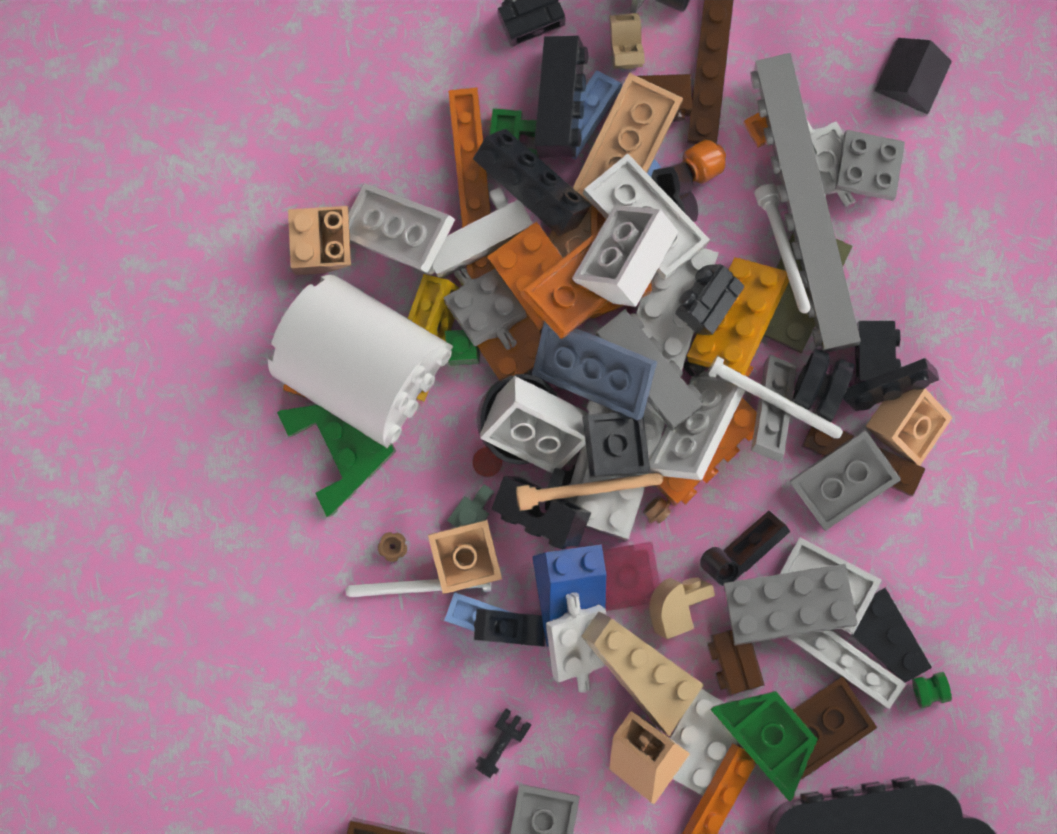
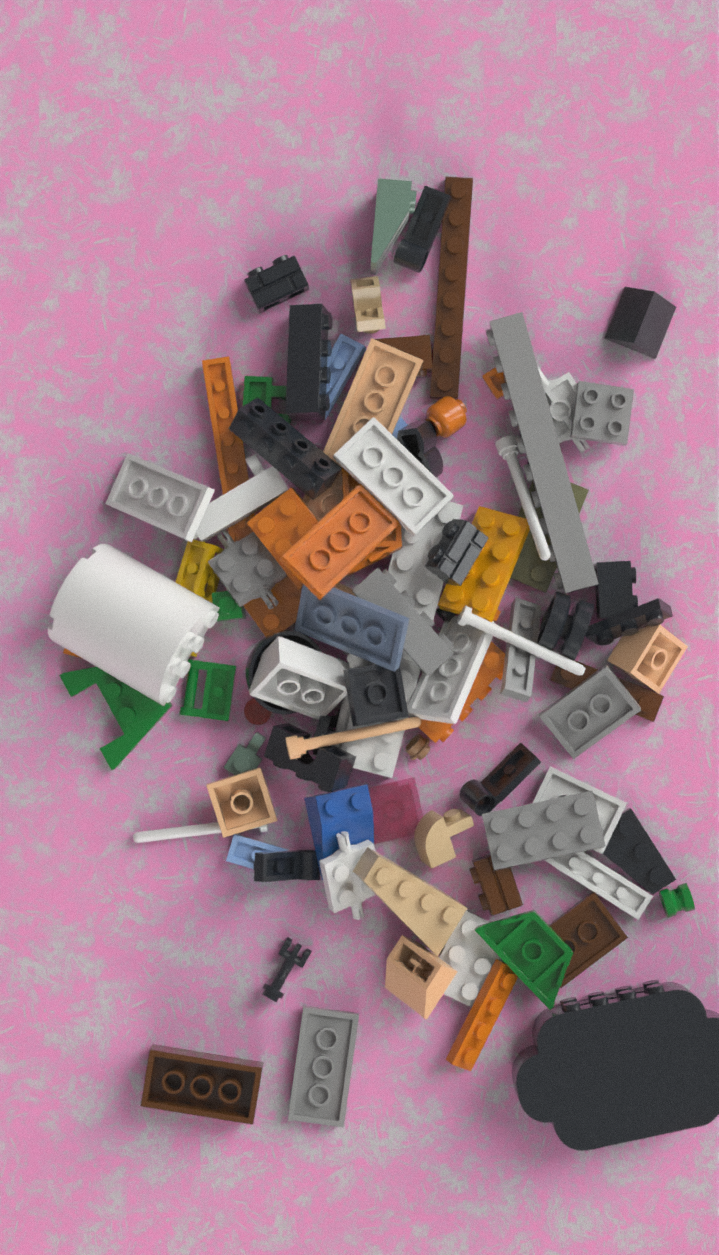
camera: 10 degrees left, 5 degrees up
(319, 239) = (88, 510): light nougat slope -> none
(384, 546) = (169, 788): medium nougat plate -> none
(445, 437) = (217, 690): none -> green plate
(626, 254) = (376, 517): white slope -> none

